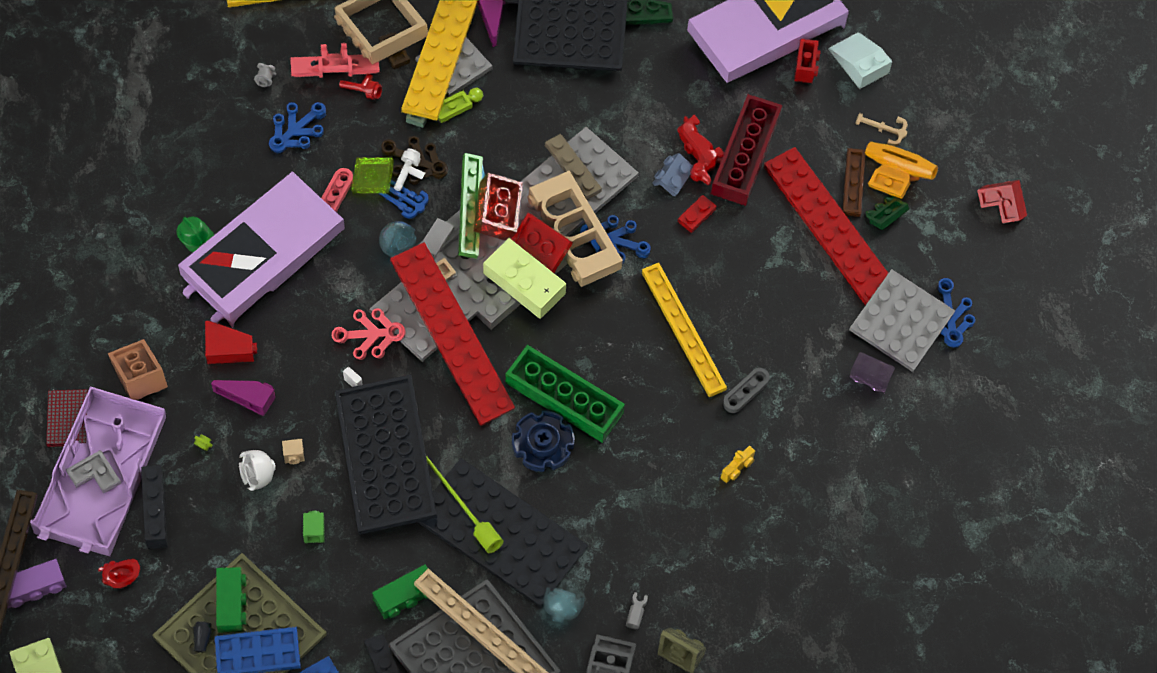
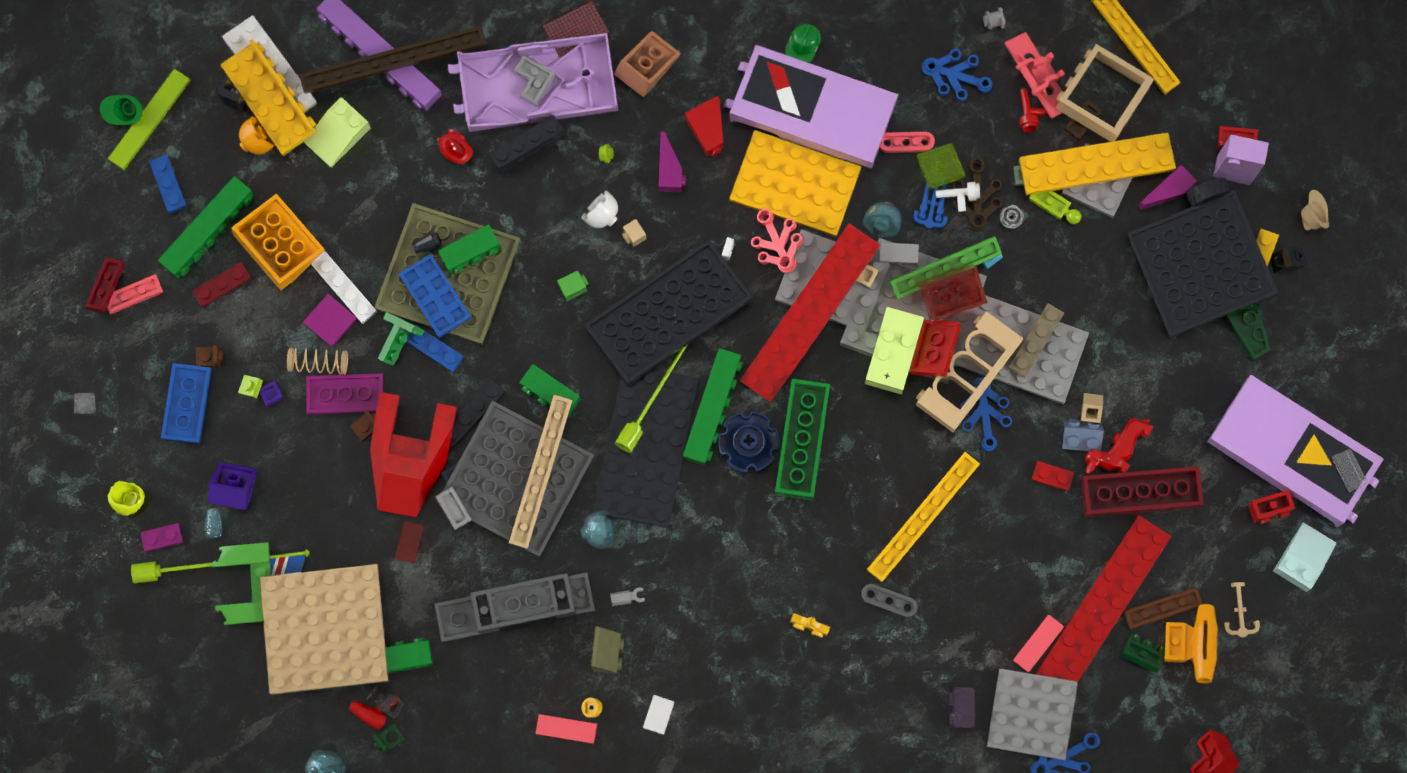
camera: 70 degrees right, 15 degrees up
(321, 298) = (795, 183): none -> yellow plate
(450, 136) = (1011, 211): none -> light grey plate
(494, 457) = (712, 406): none -> green brick
(653, 153) = (1092, 408): none -> tan brick
(759, 634) = (658, 714): none -> white sticker
(840, 290) = (1038, 643): none -> coral tile

